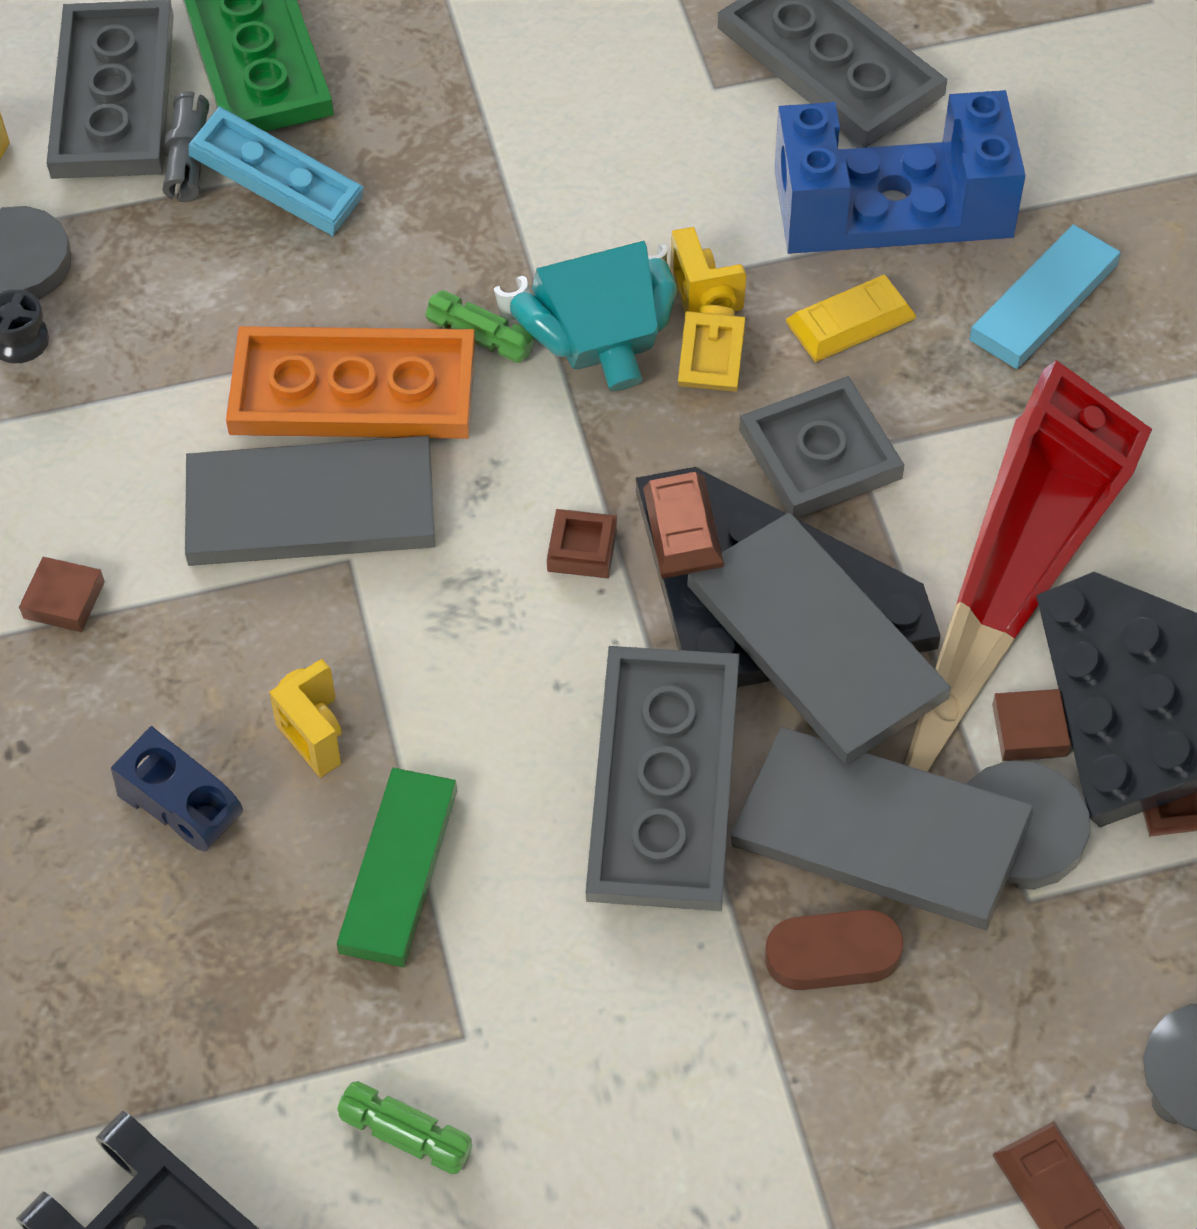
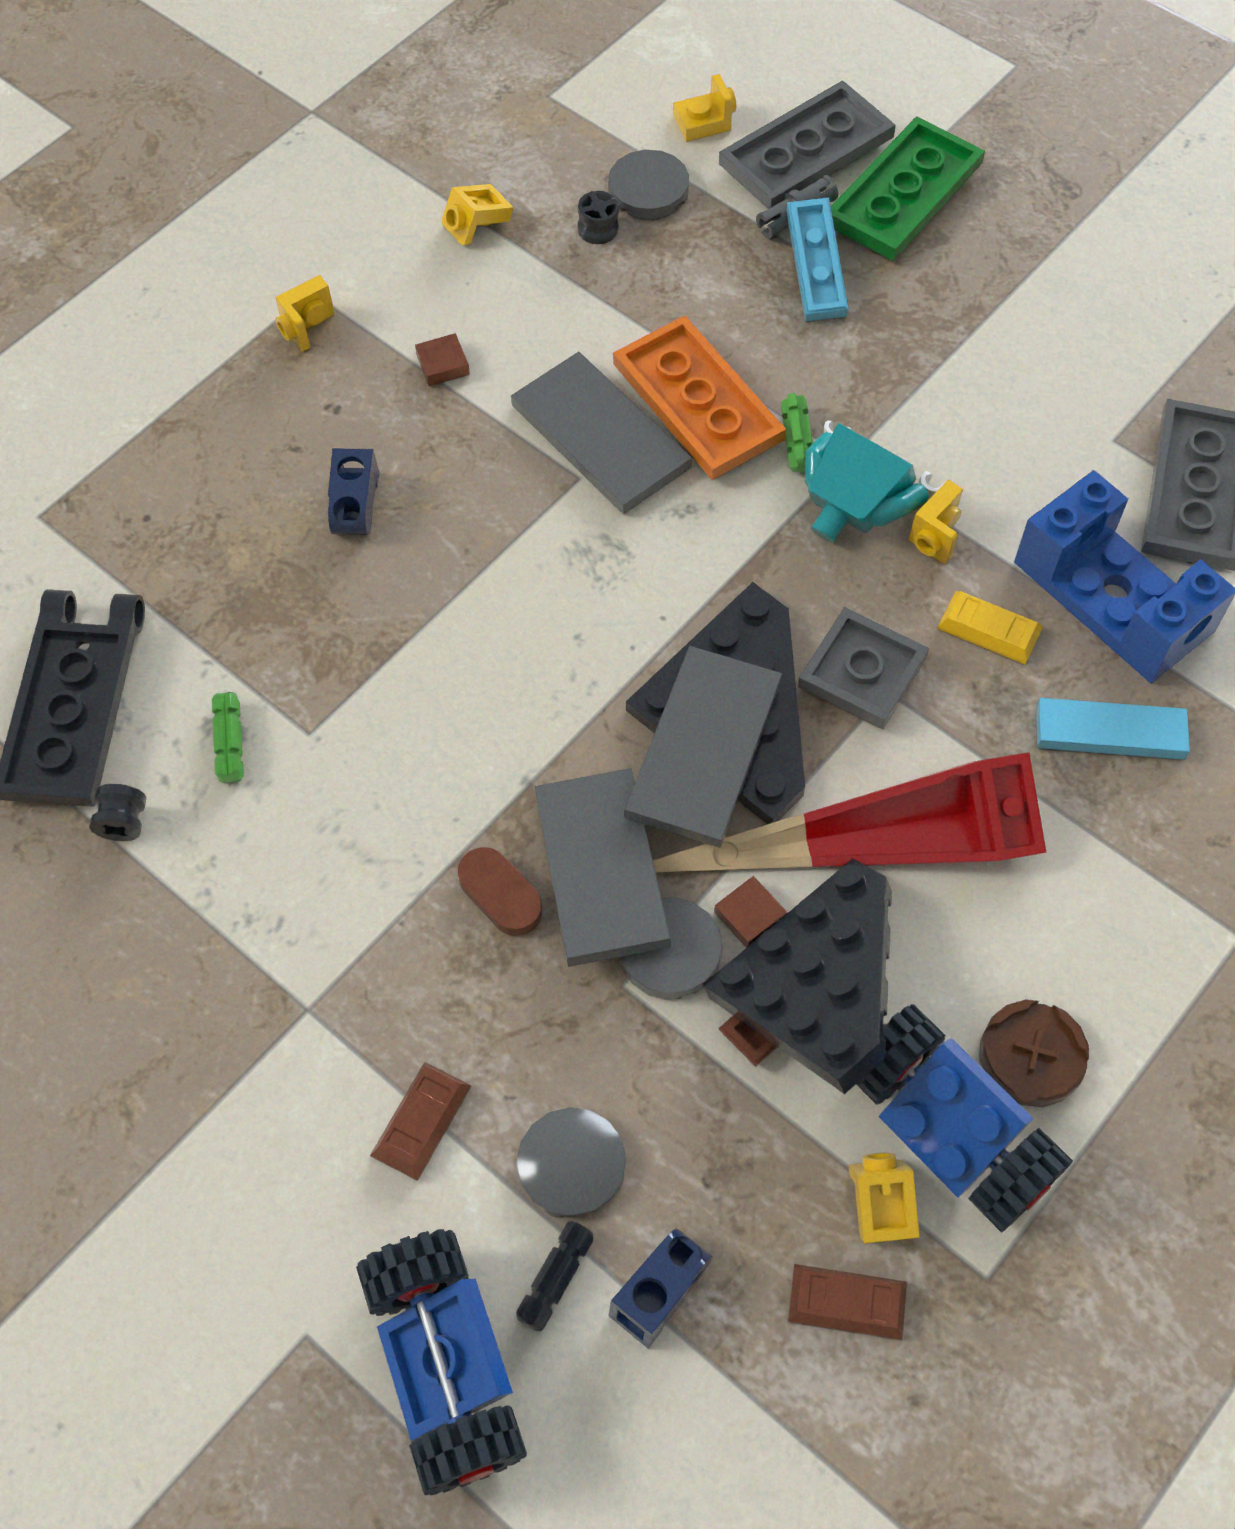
camera: 55 degrees right, 5 degrees up
(305, 719) = (444, 518): yellow bracket -> none
(397, 867) = (389, 630): green tile -> none
(582, 543) = (685, 585): copper tile -> none
(663, 779) = (543, 724): dark grey plate -> none
(682, 525) = (724, 622): tile -> none
(711, 349) = (886, 561): yellow bracket -> none

